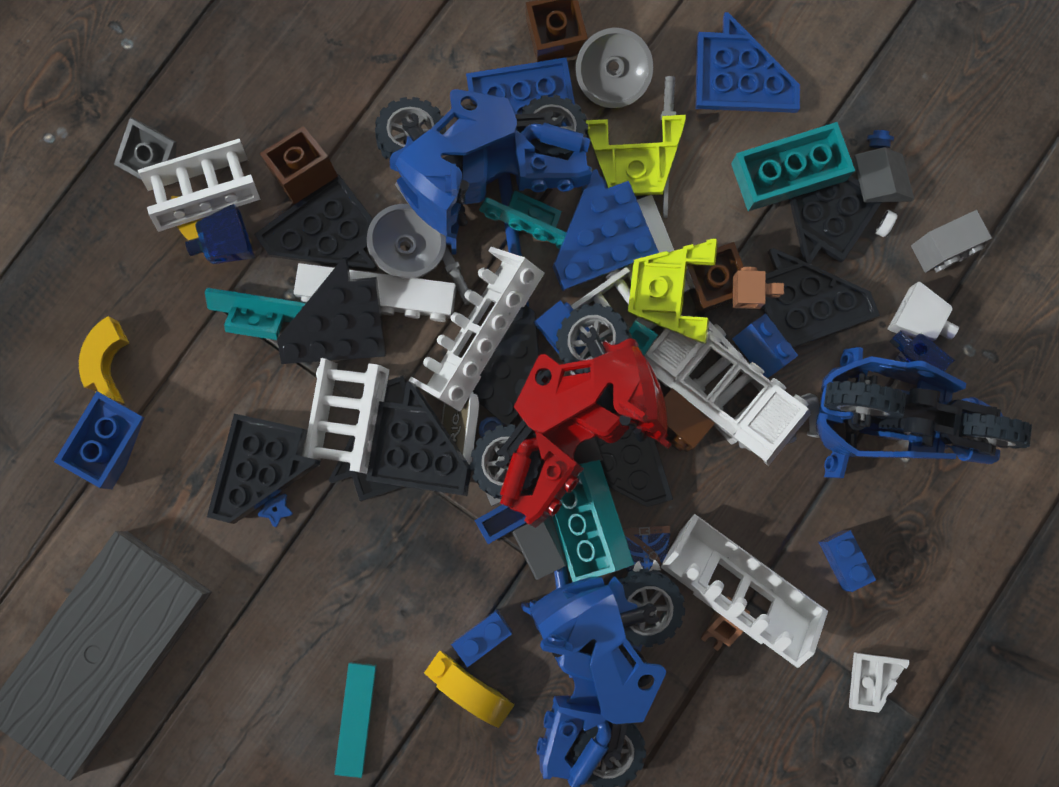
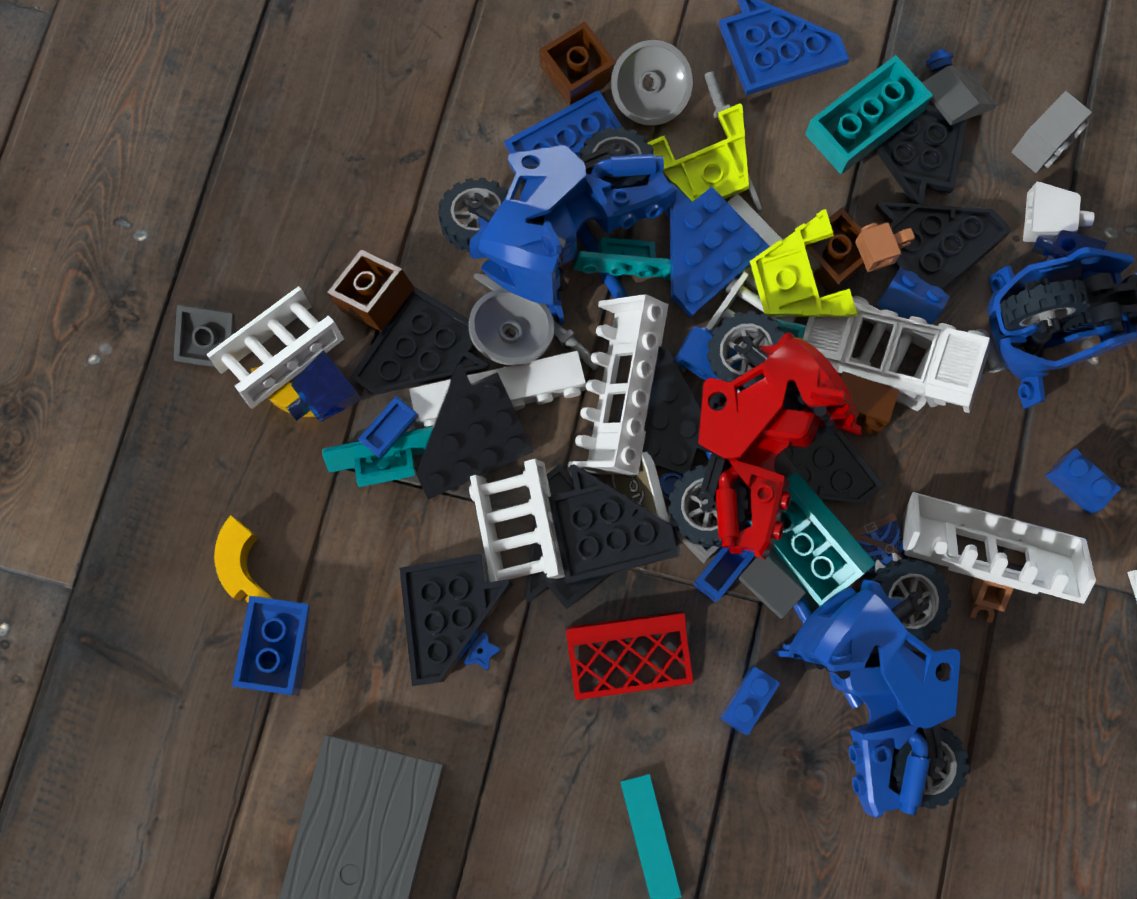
camera: 20 degrees left, 5 degrees down
(267, 290) = (388, 427): none -> blue tile
(404, 537) = (624, 629): none -> red fence
(468, 691) = (756, 759): yellow arch -> none
(886, 223) = (979, 138): white tile -> none

